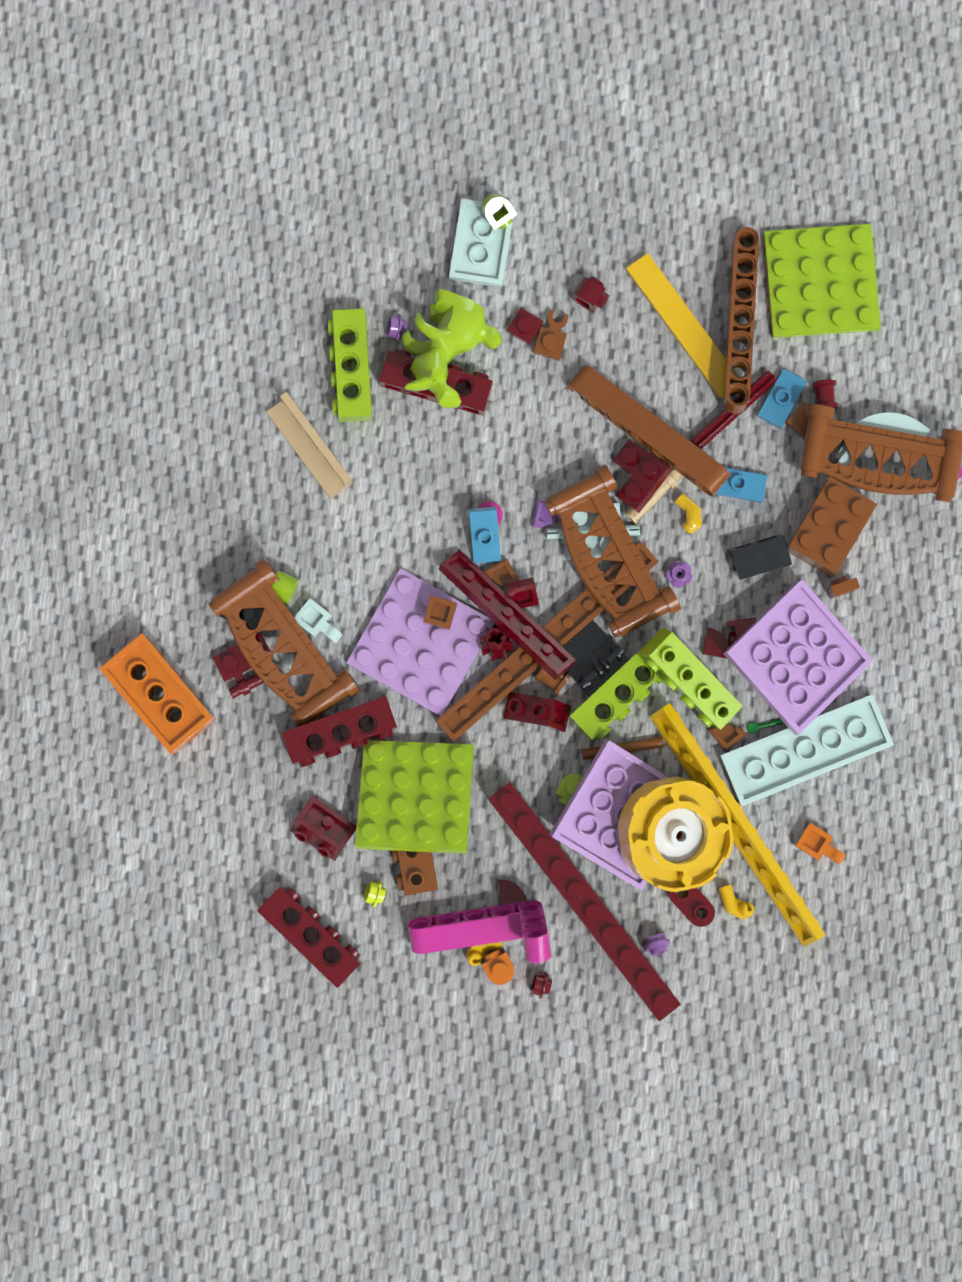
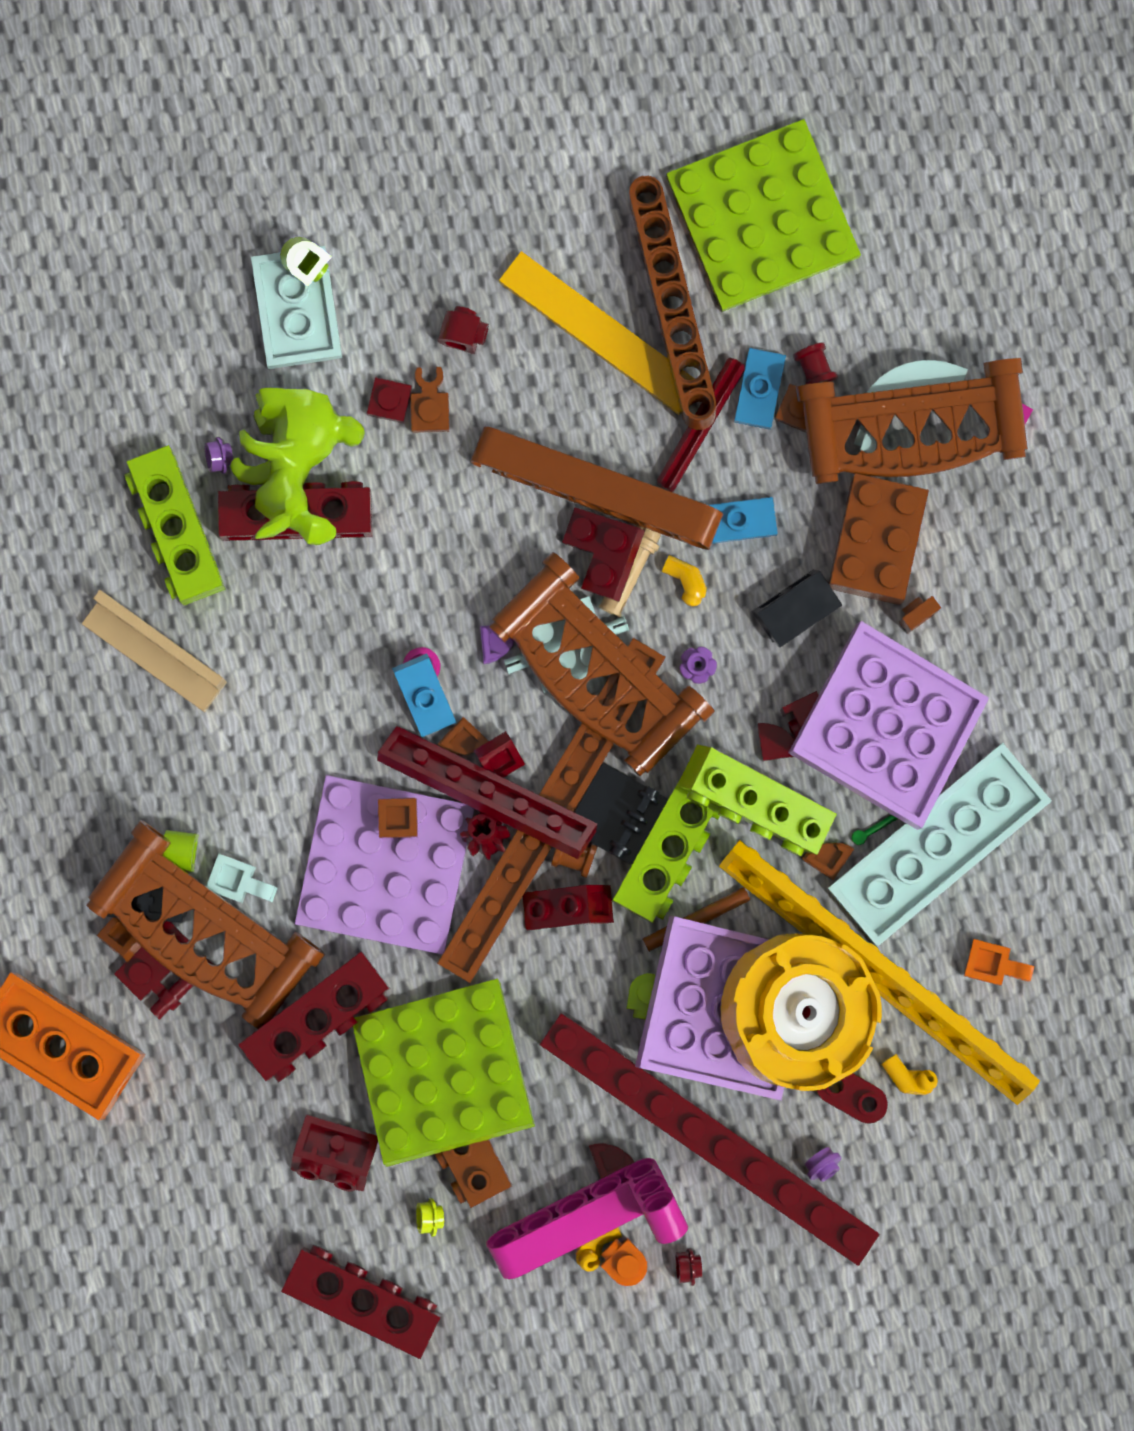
camera: 15 degrees left, 0 degrees up
(223, 635) = (119, 939): none -> dark orange plate

